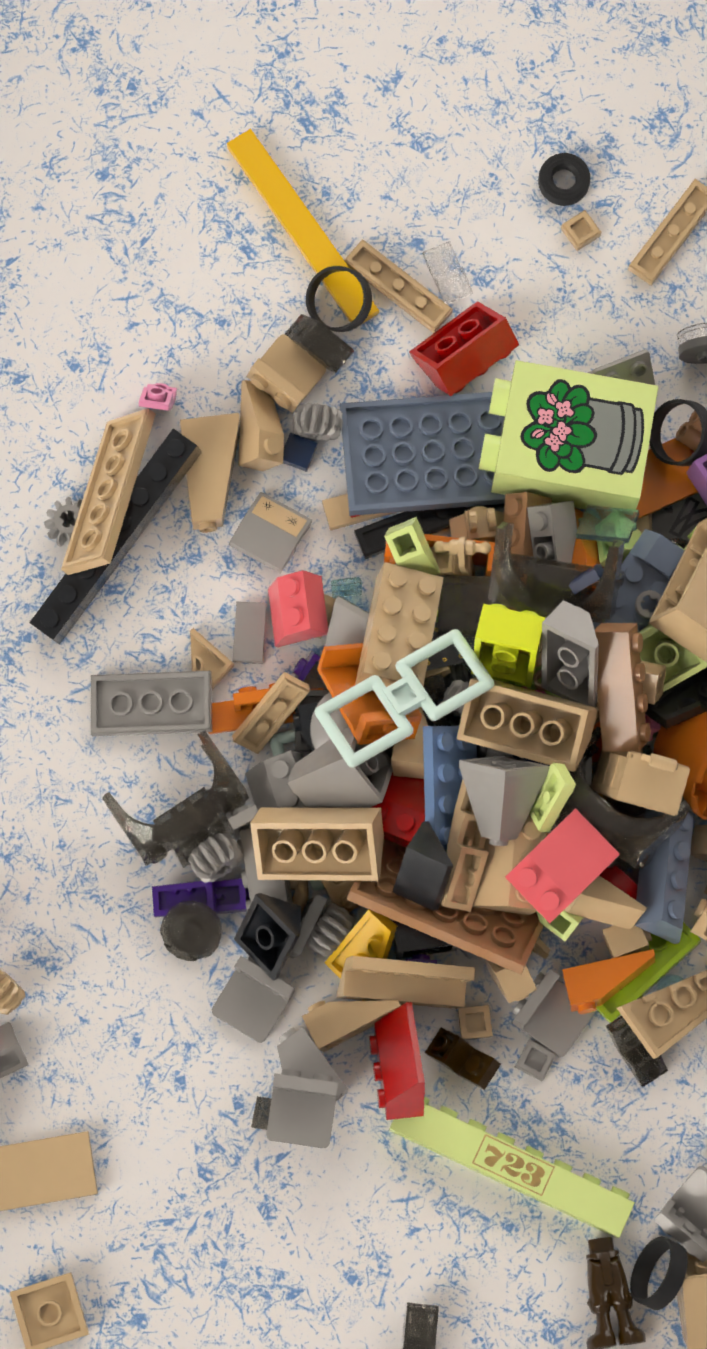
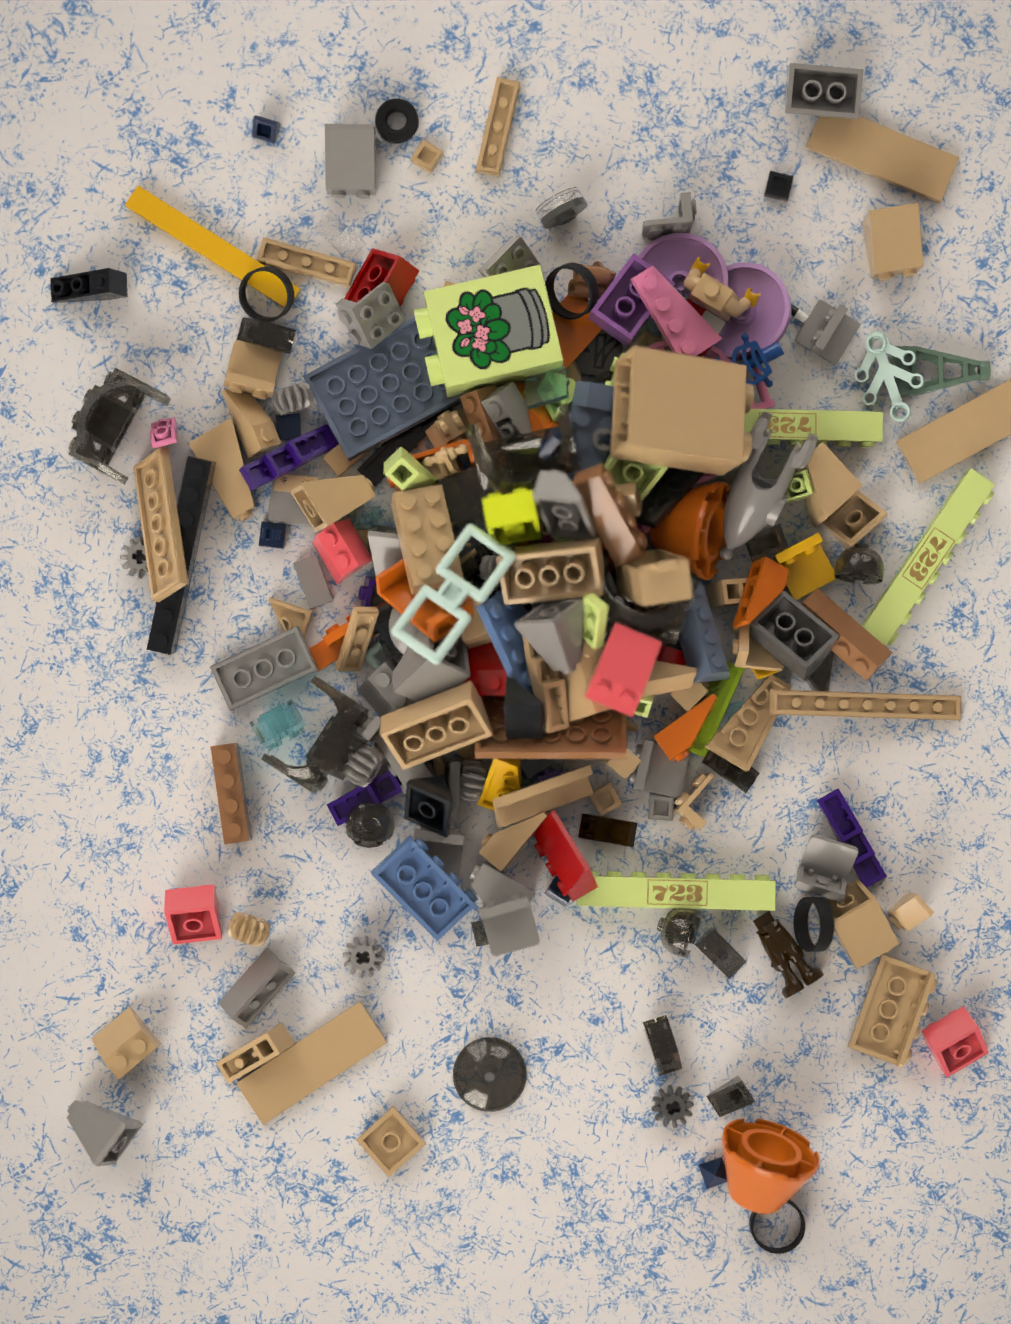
camera: 20 degrees left, 10 degrees up
(49, 826) = (231, 793): none -> medium nougat brick
(102, 357) = (106, 420): none -> clear smoke piece
(112, 1090) = (365, 965): none -> light grey gear
(138, 770) = (278, 724): none -> clear light blue brick
(149, 210) = (89, 286): none -> black slope
(222, 1029) = (424, 887): none -> medium blue bracket
(223, 1292) = (492, 1056): none -> clear smoke dish
(227, 562) = (272, 535): none -> dark blue tile
(283, 483) = (289, 457): none -> dark purple slope
(313, 544) = (332, 498): none -> tan slope
(370, 1107) = (555, 893): none -> slope
(416, 128) = (265, 129): none -> dark blue slope
(445, 368) = (372, 316): none -> light grey bracket
(495, 196) = (350, 160): none -> light grey slope
(497, 1211) = (679, 930): none -> clear smoke cylinder
(534, 1261) = (720, 952): none -> clear smoke slope
(564, 1082) = (689, 817): none -> tan bracket

